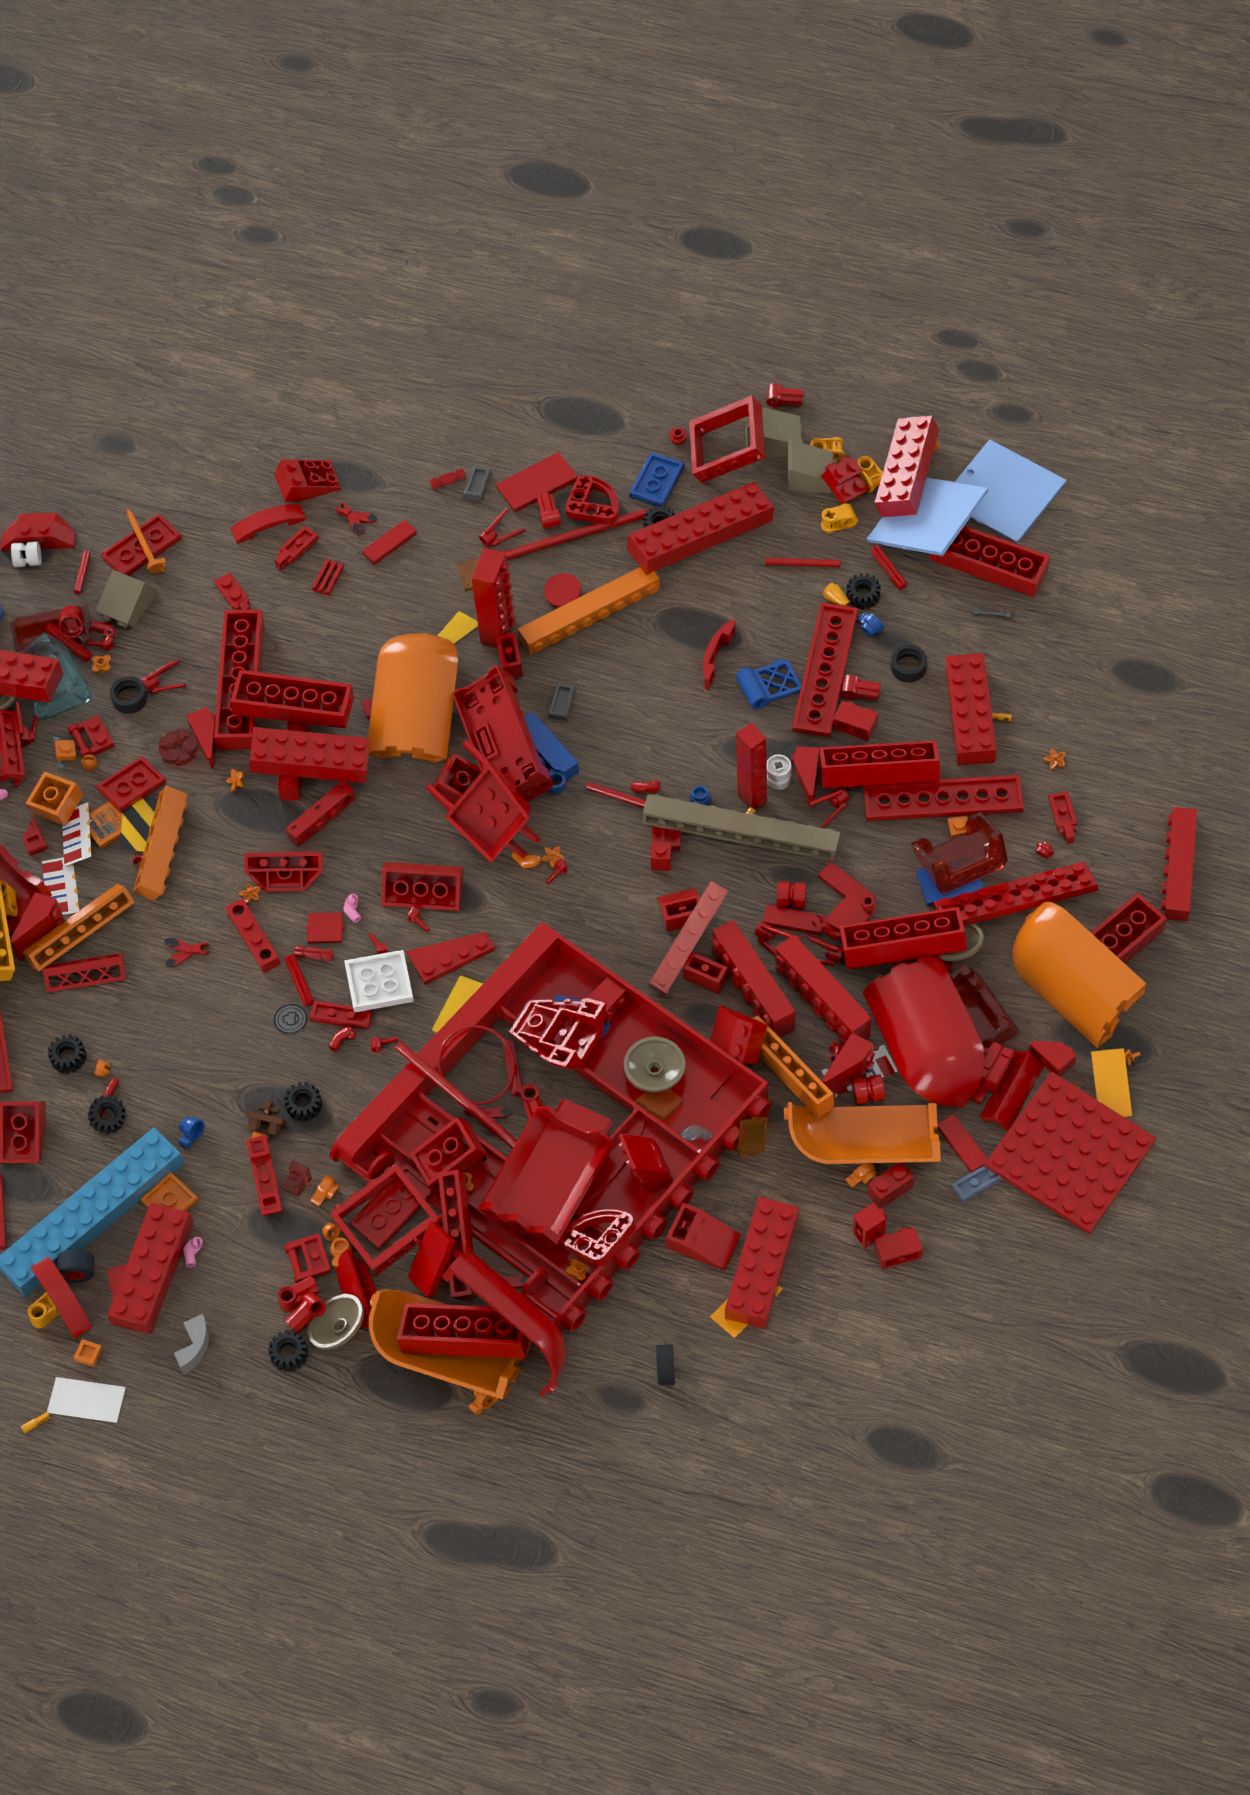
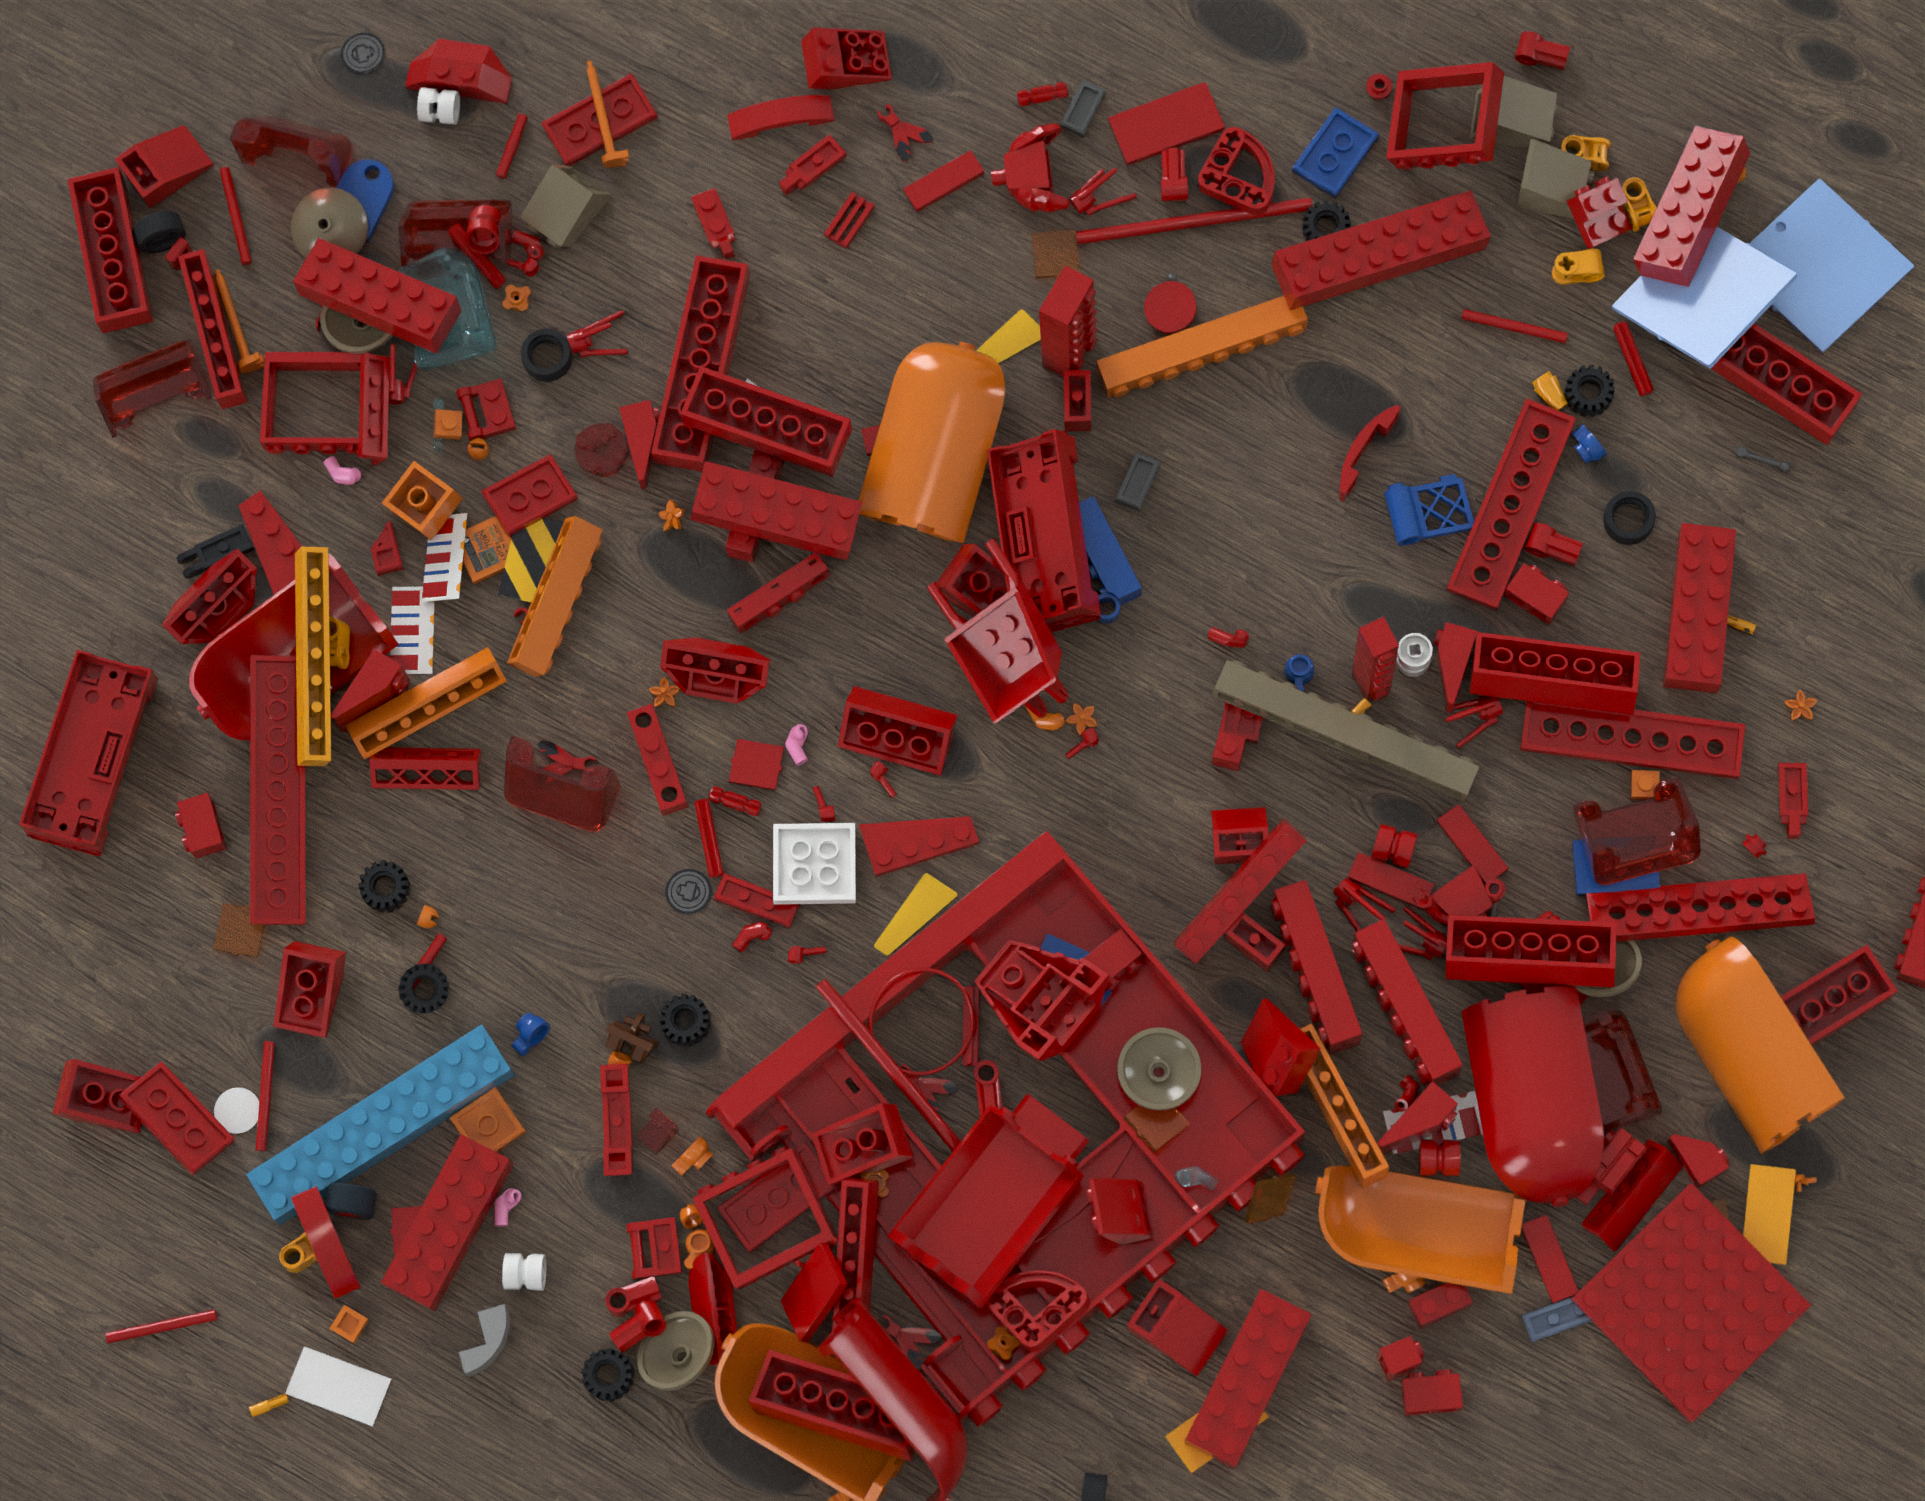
camera: 15 degrees right, 15 degrees up
(184, 967) = (555, 796): none -> clear red windscreen
(214, 1290) = (523, 1271): none -> white wheel
(448, 525) = (1029, 170): none -> red torso
(615, 794) = (1186, 642): red bar -> none

